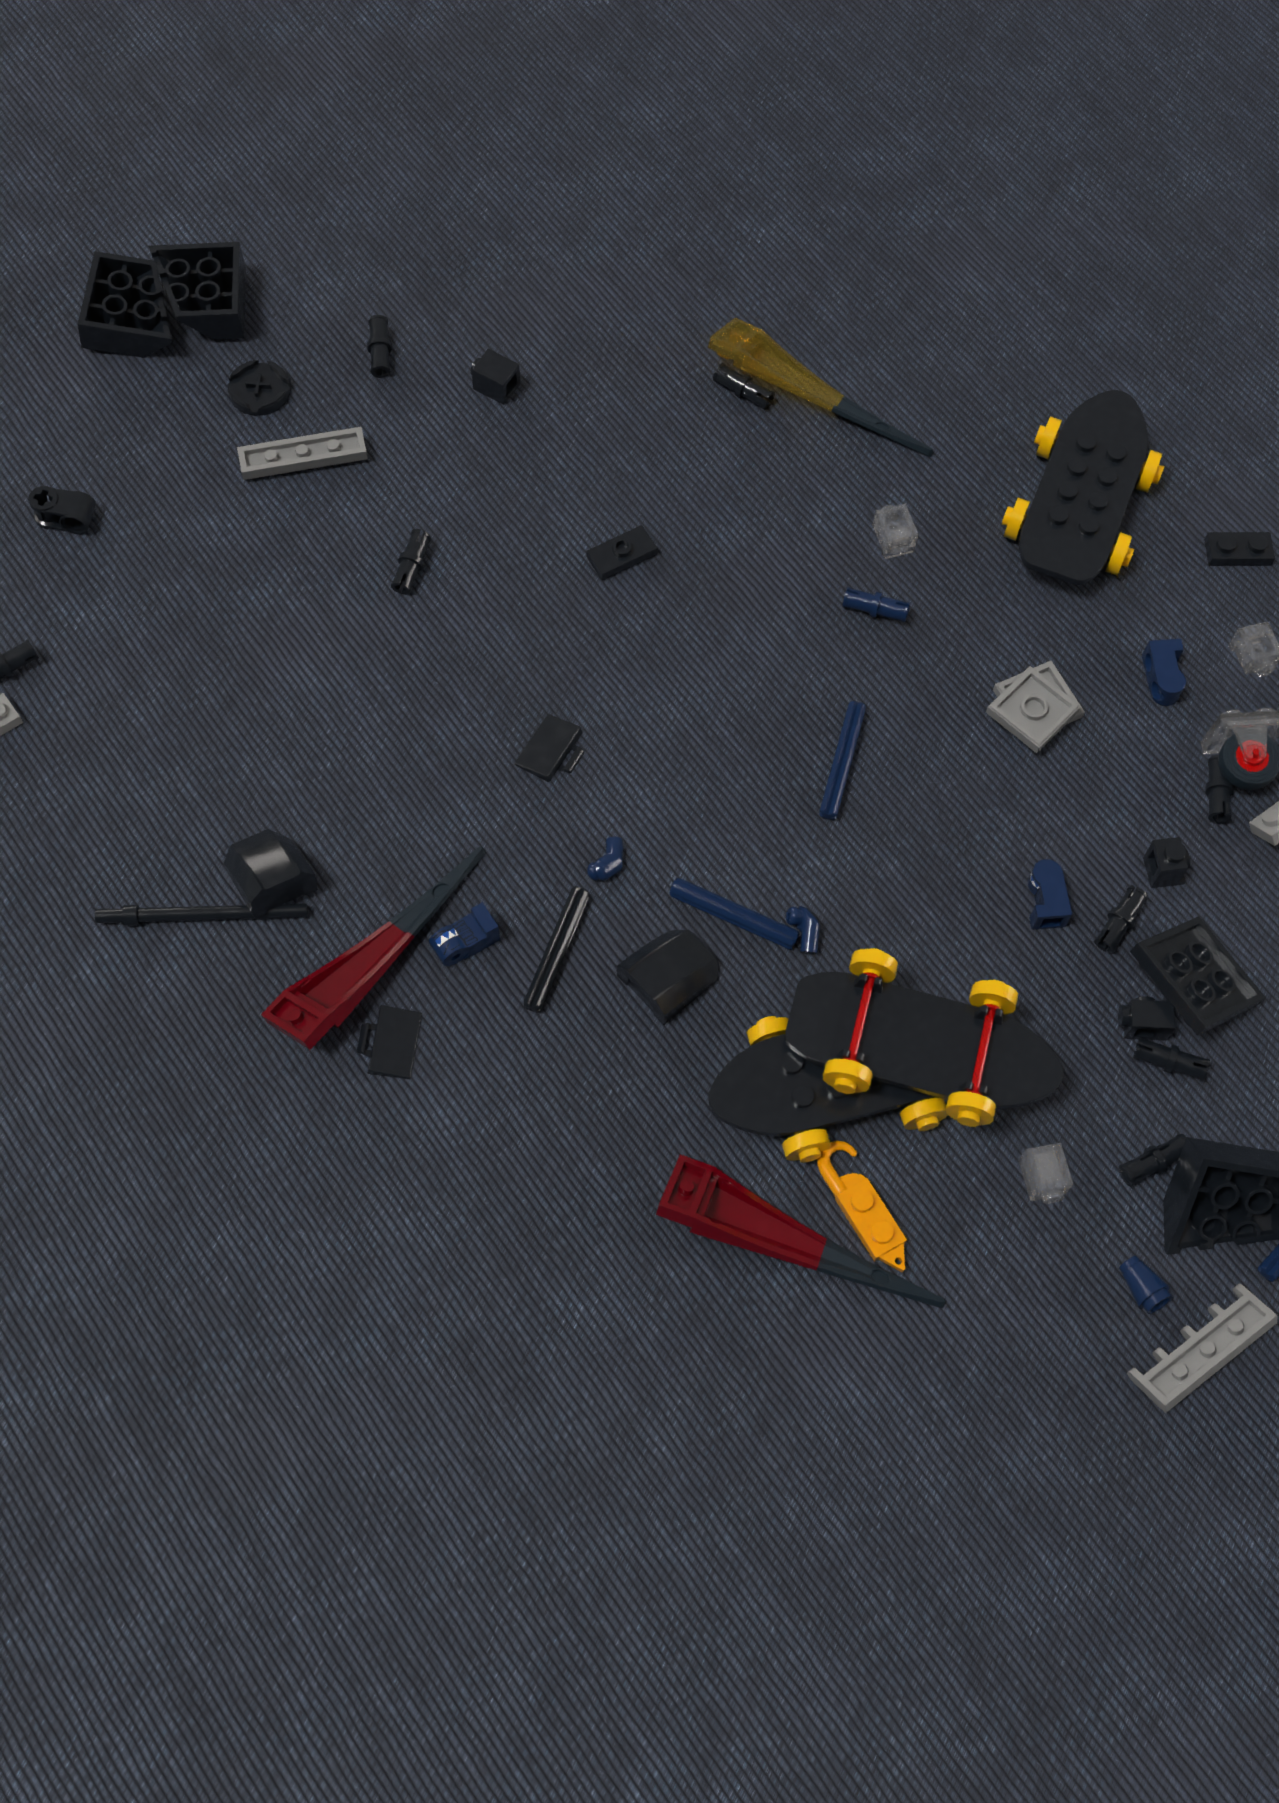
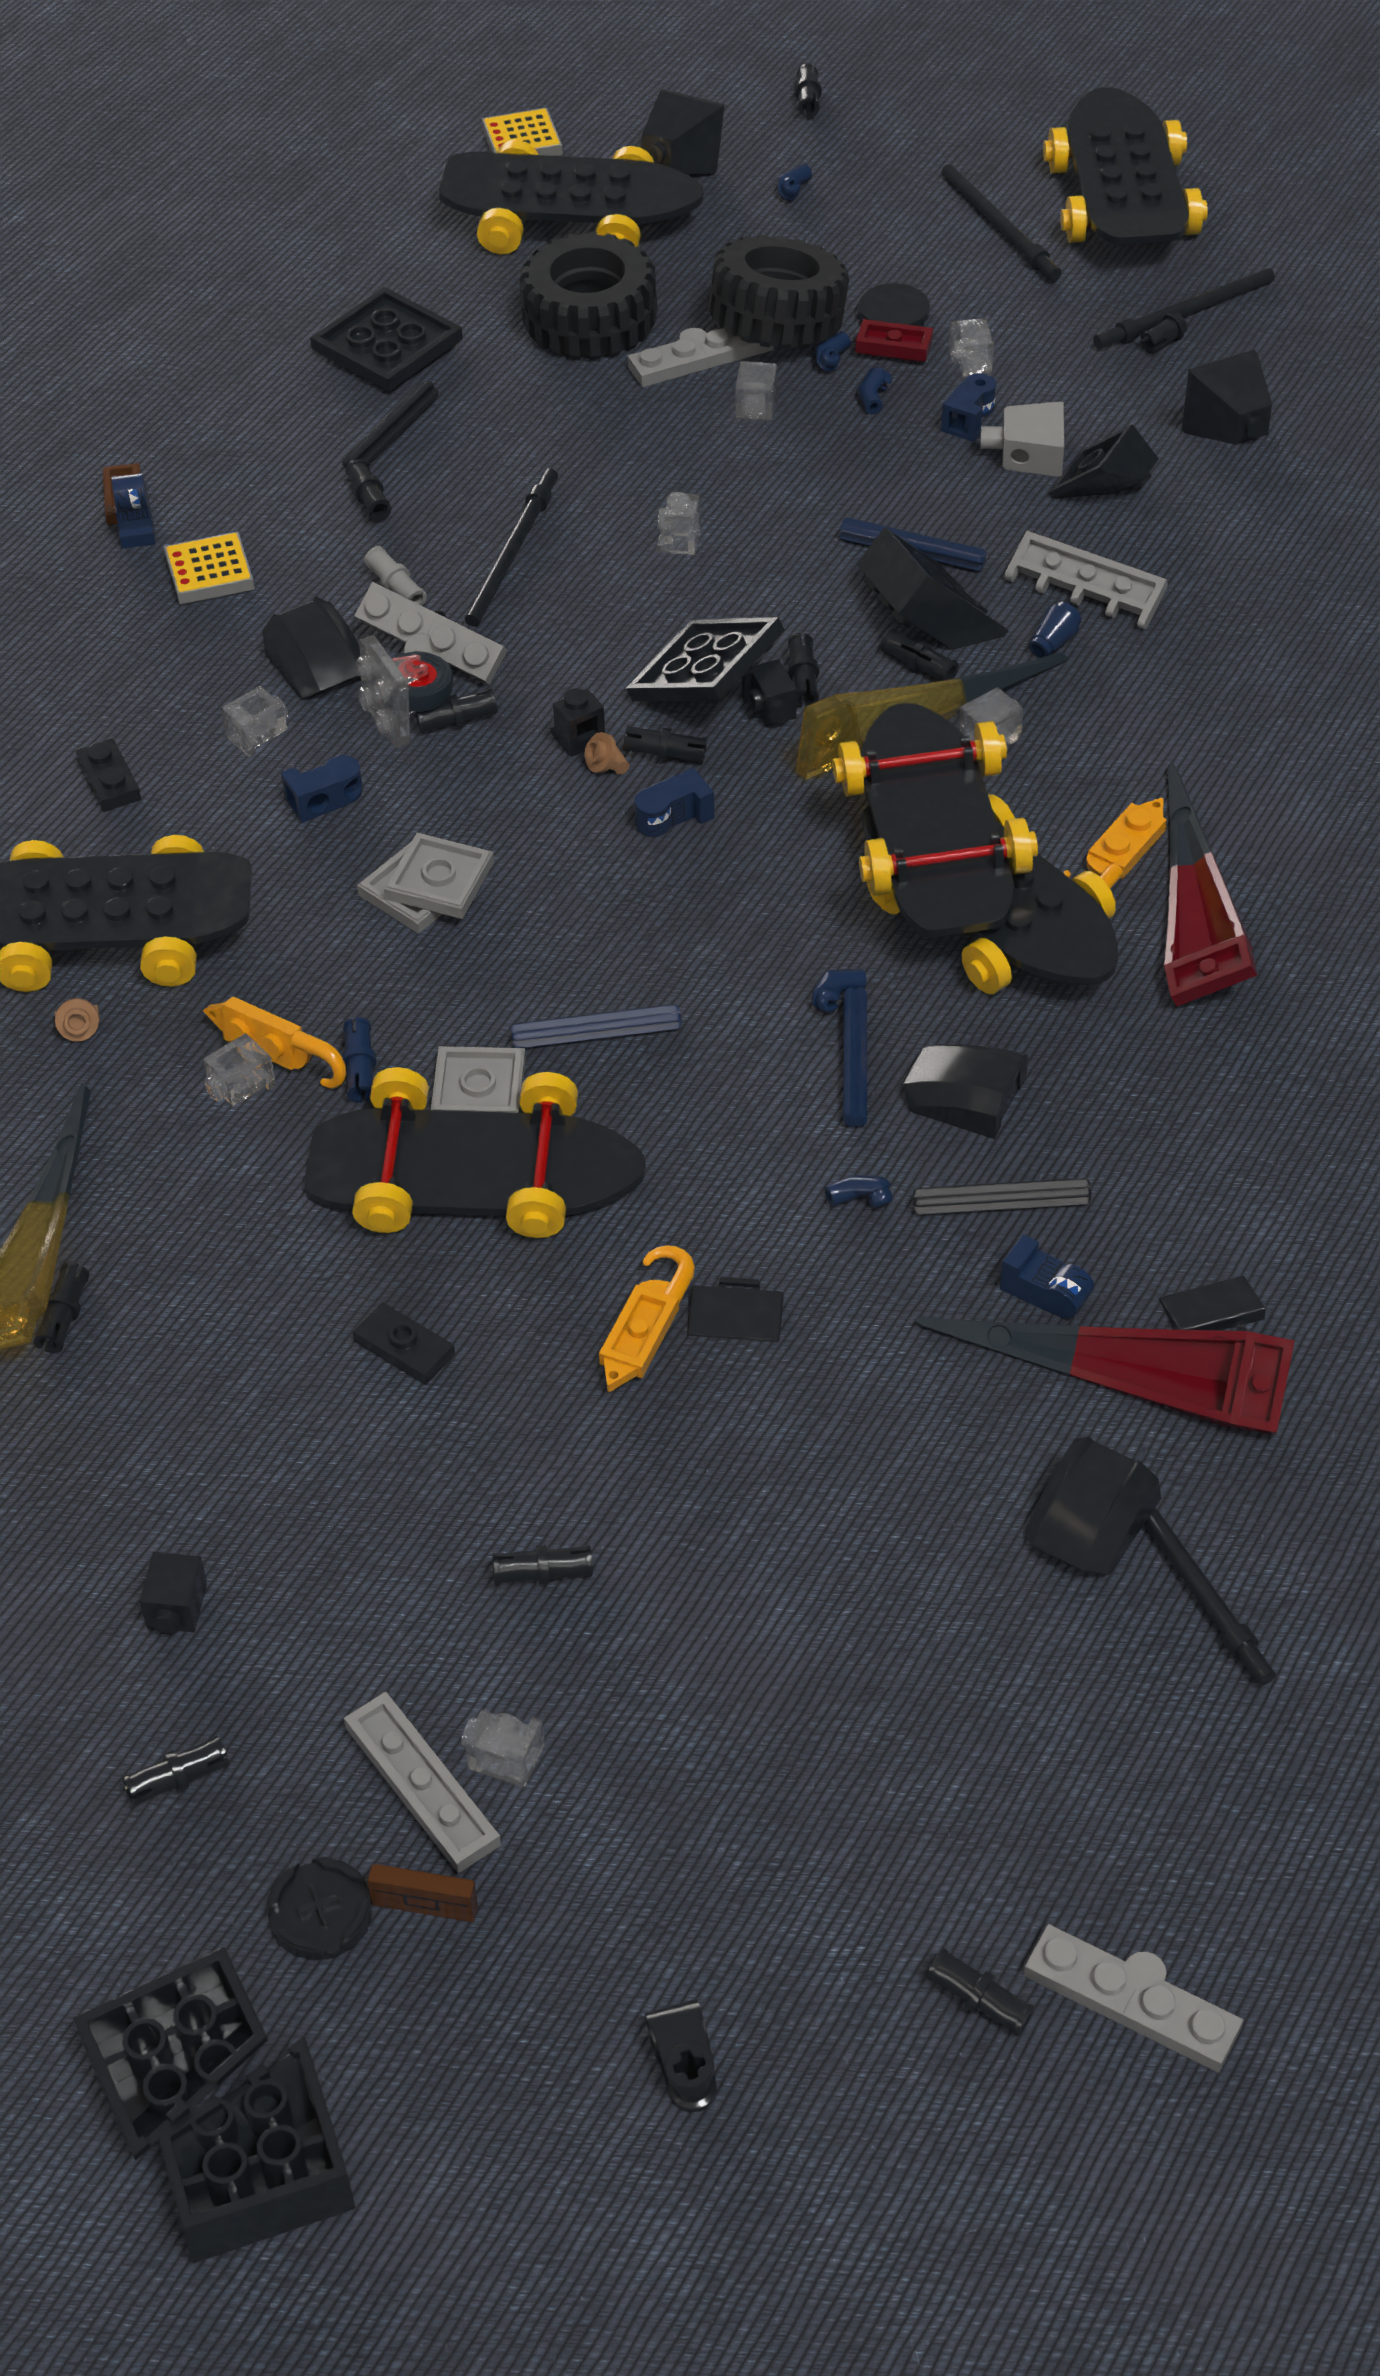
camera: 110 degrees left, 15 degrees down
(231, 428) = (423, 1892): none -> reddish brown tile
(297, 495) = (503, 1746): none -> clear brick
(565, 686) = (645, 1320): none -> light orange plate
(750, 638) = (469, 1162): none -> black piece
(823, 670) = (478, 1079): none -> light grey tile
(913, 557) = (276, 1036): none -> light orange plate
(991, 461) = (77, 1019): none -> medium nougat plate
(1068, 1041) = (851, 715): none -> clear yellow plate
(1127, 873) = (603, 755): none -> medium nougat plate

